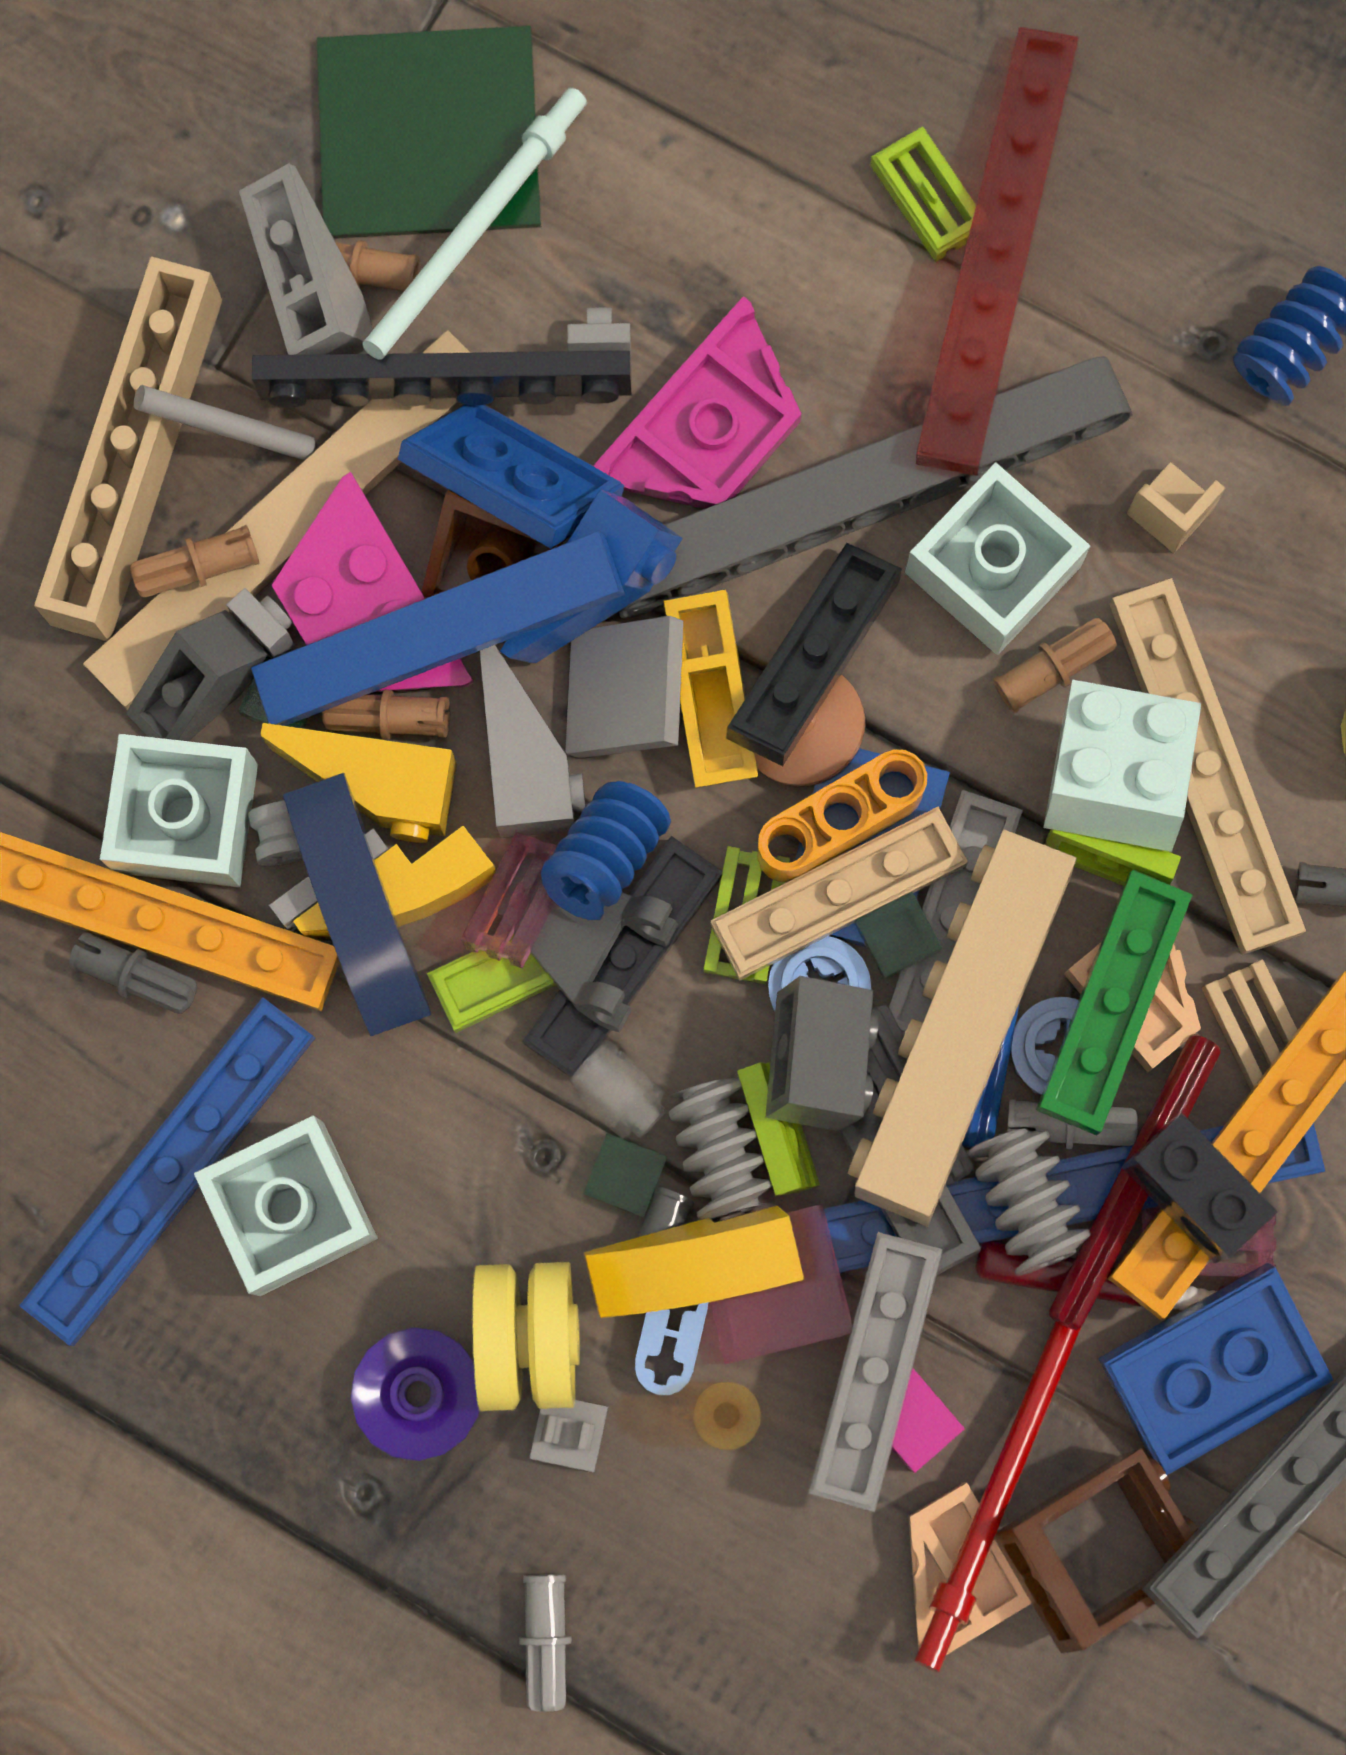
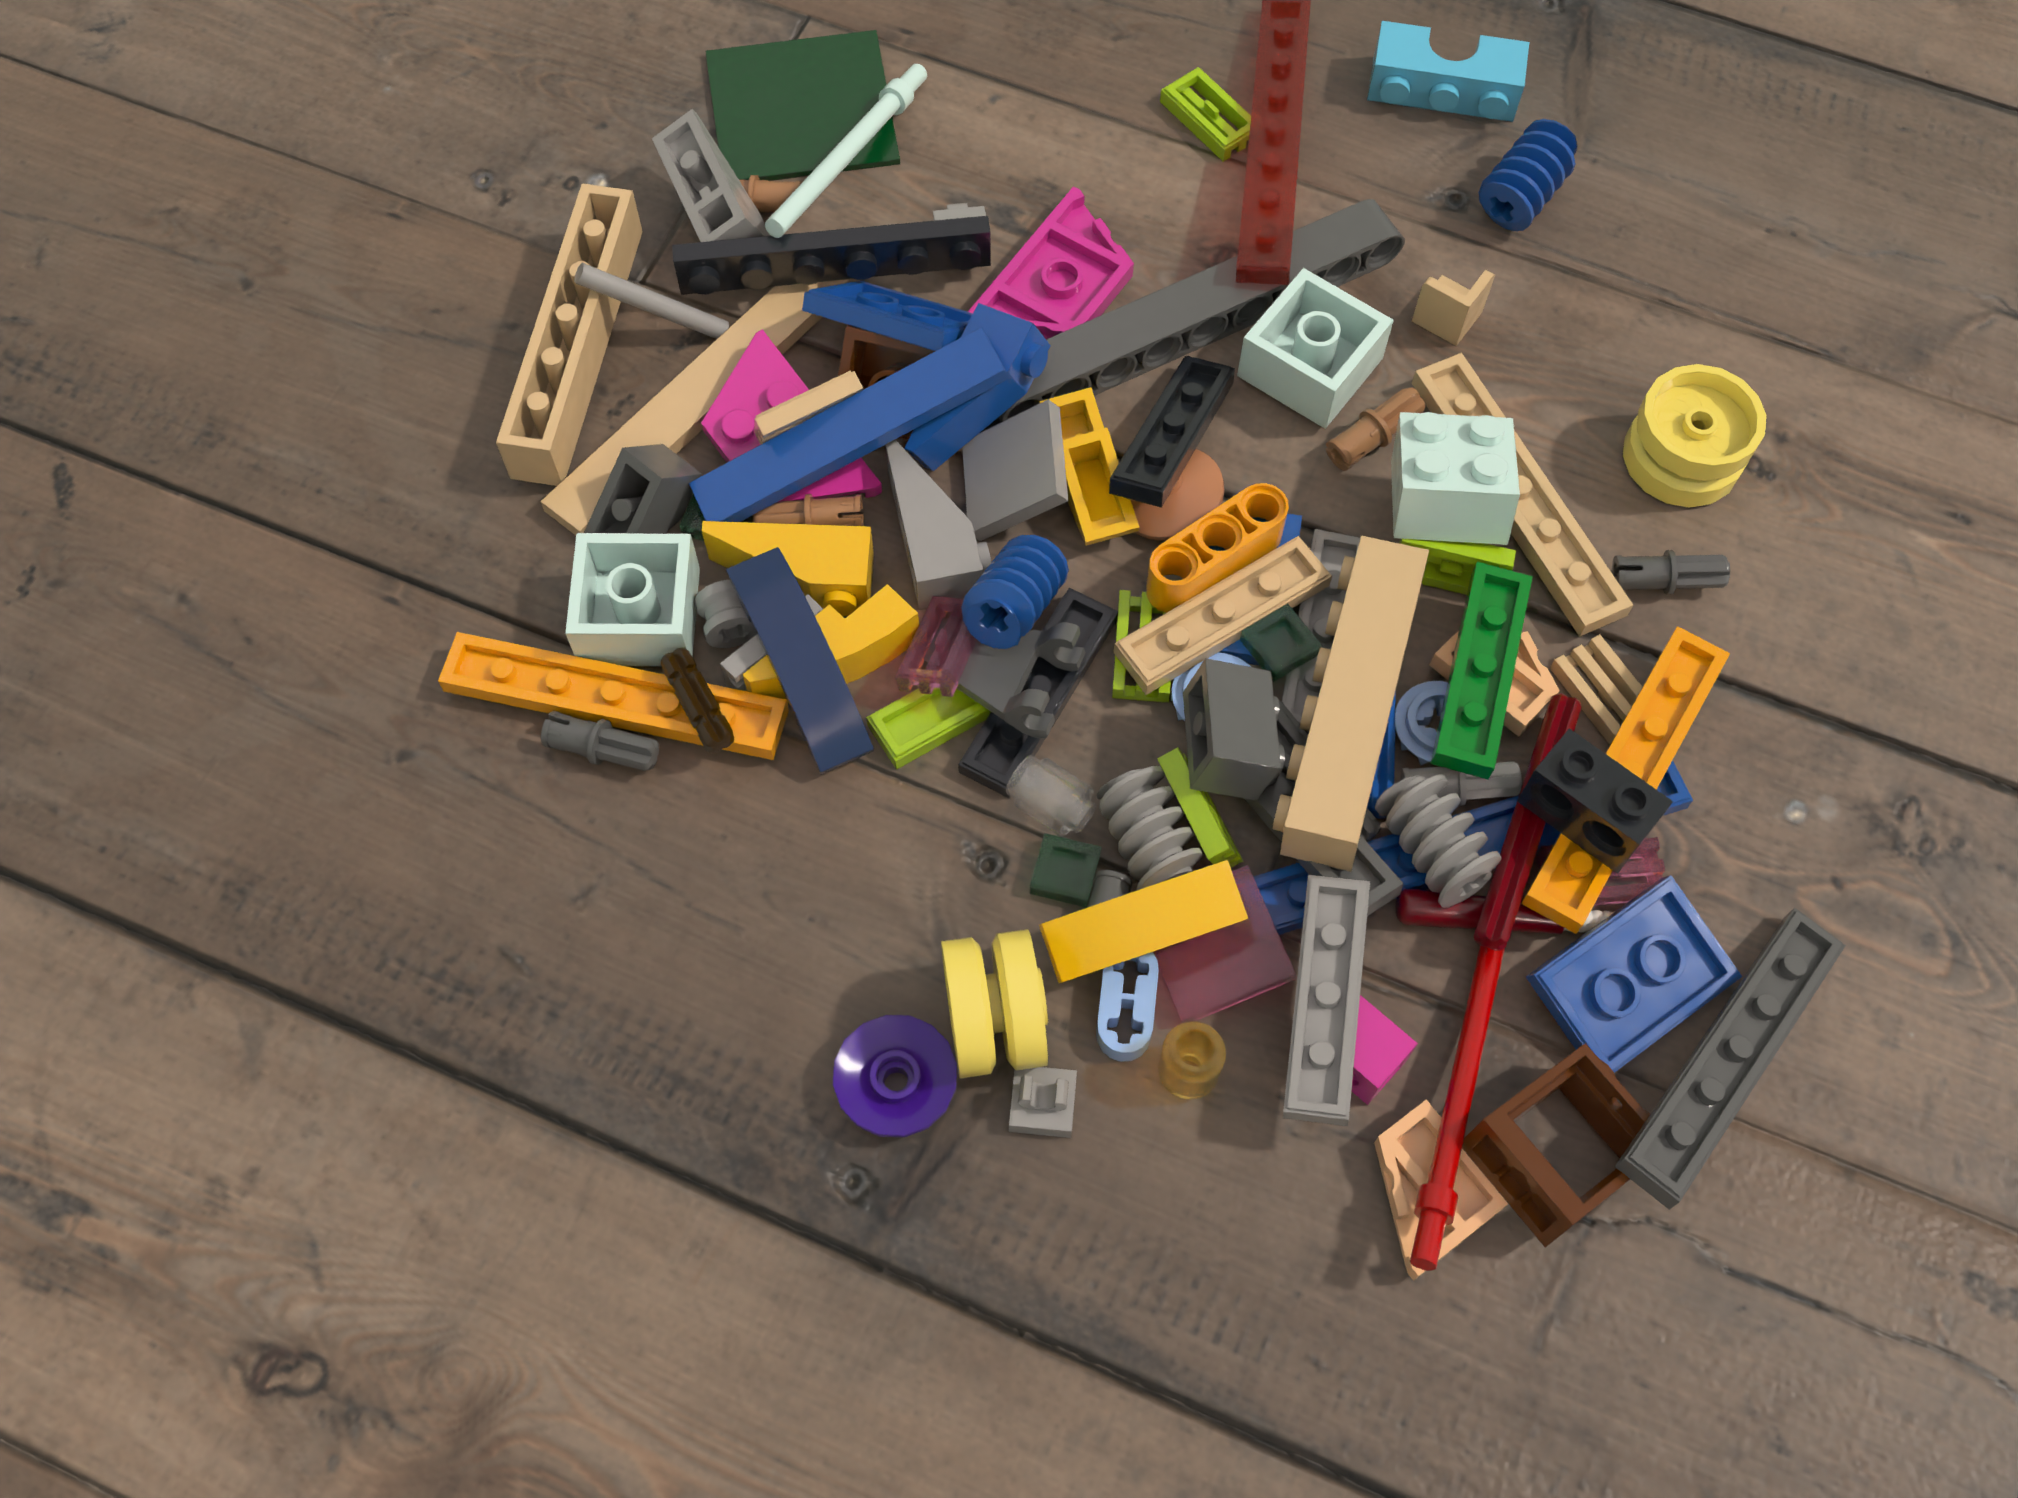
camera: 10 degrees left, 15 degrees down
(163, 1172) = (639, 914): blue tile -> none
(194, 562) = (635, 409): medium nougat axle -> none
(241, 944) = (697, 700): none -> dark brown axle
(263, 622) = (694, 448): light grey plate -> none
(285, 1206) = (757, 916): light aqua brick -> none
(391, 596) = (805, 406): none -> tan tile
(545, 1642) = (1045, 1297): light grey axle -> none
(1182, 167) = (1415, 76): none -> medium azure arch

